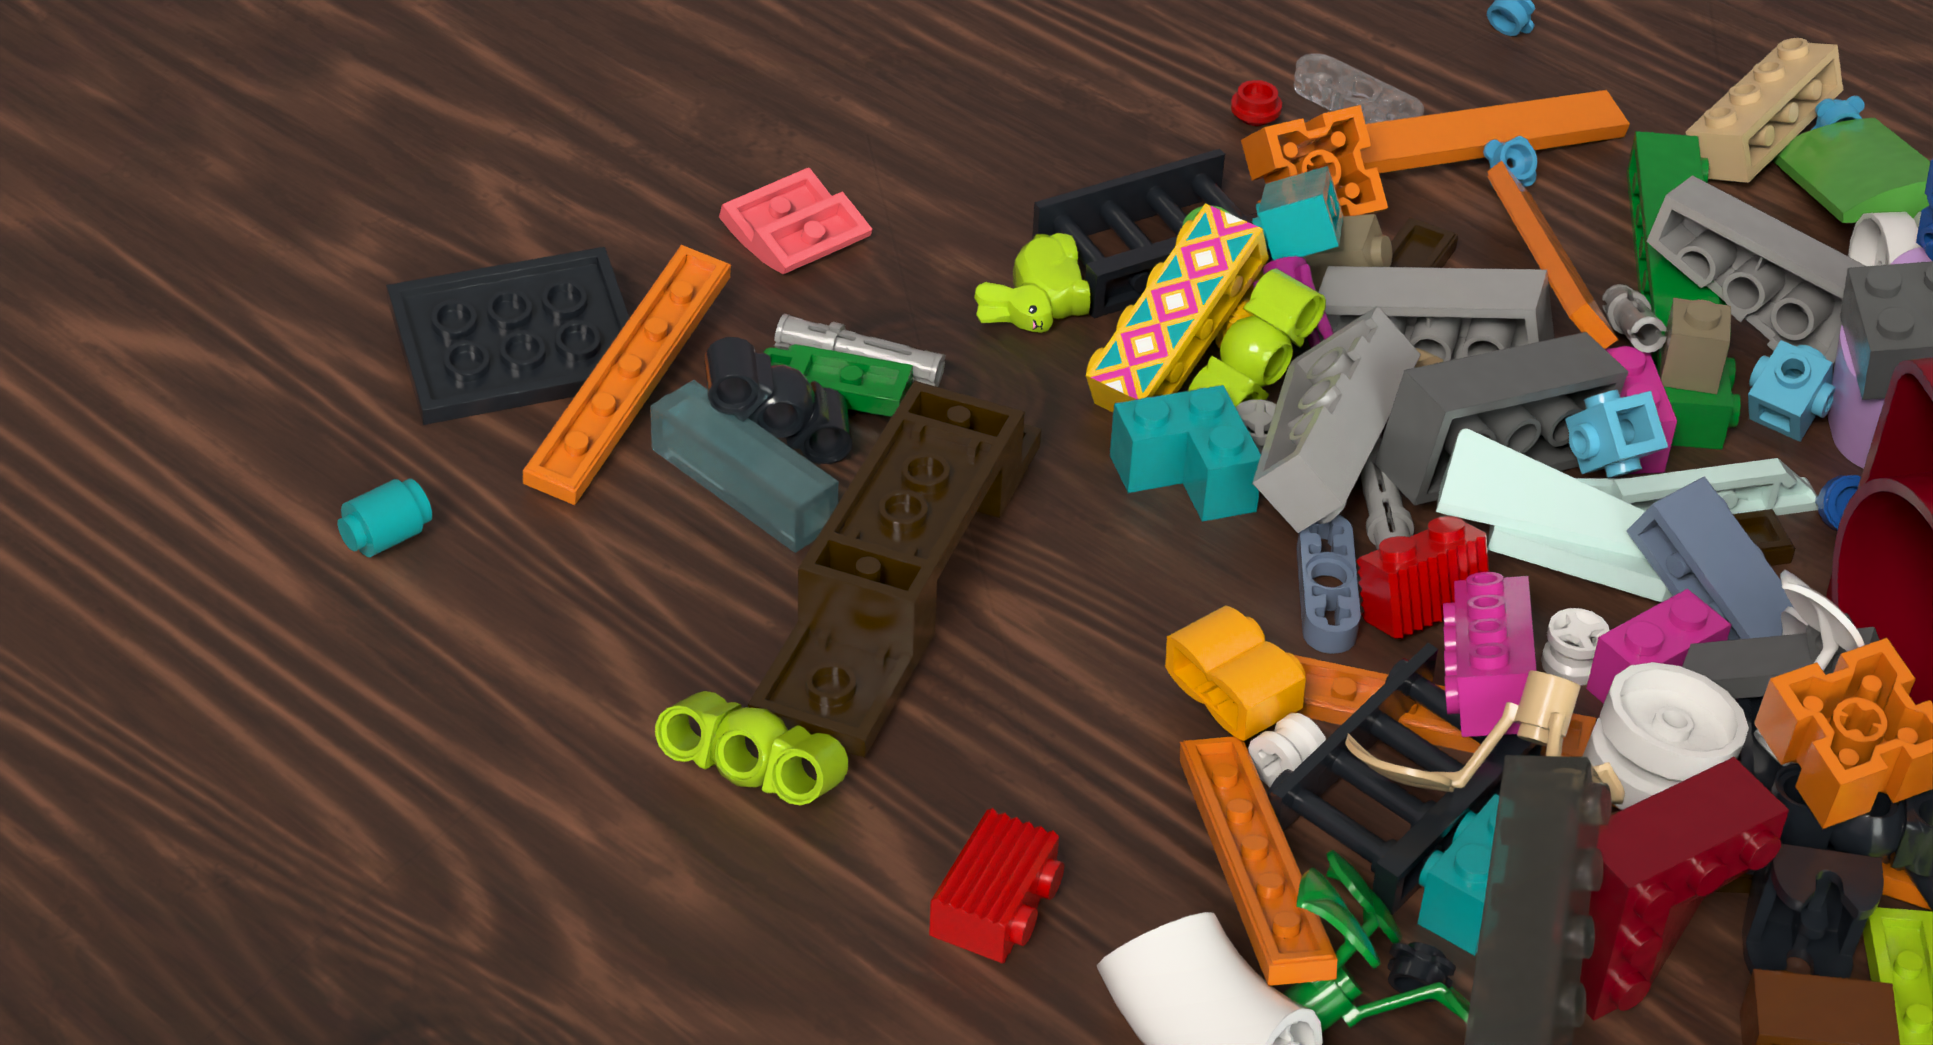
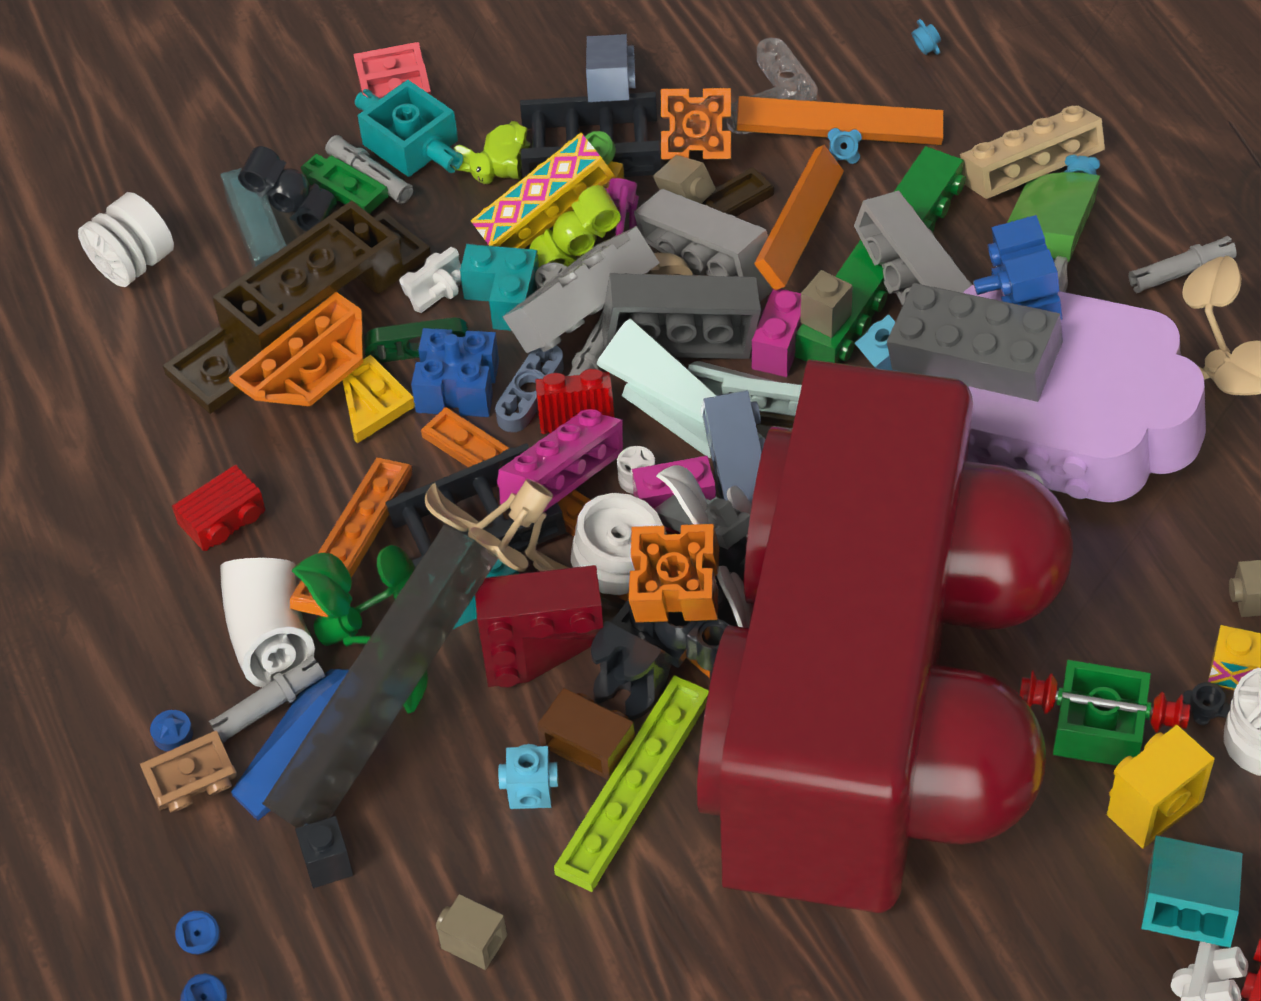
camera: 30 degrees right, 10 degrees up
(384, 516) = (53, 201): teal brick -> none
(506, 332) = (191, 108): black plate -> none
(565, 534) = (126, 239): none -> white wheel
(626, 375) = (232, 148): orange tile -> none
(779, 749) = (147, 391): lime piece -> none
(891, 279) = (408, 128): none -> teal brick
(991, 620) = (307, 356): none -> orange wedge
(1079, 473) = (434, 280): none -> white hips
(1086, 571) = (383, 341): none -> dark green beam
(1107, 659) = (374, 398): none -> yellow wing
(1131, 133) = (609, 68): none -> sand blue brick
(1227, 564) = (455, 372): none -> blue brick
(1235, 672) = (422, 426): light orange brick -> none
(1256, 103) = (718, 63): red plate -> none
(1286, 747) = (423, 476): white wheel -> none
(1300, 214) = (649, 152): teal brick -> none
(1615, 433) = (749, 346): medium azure brick -> none
(1634, 318) = (827, 262): light grey pin -> none

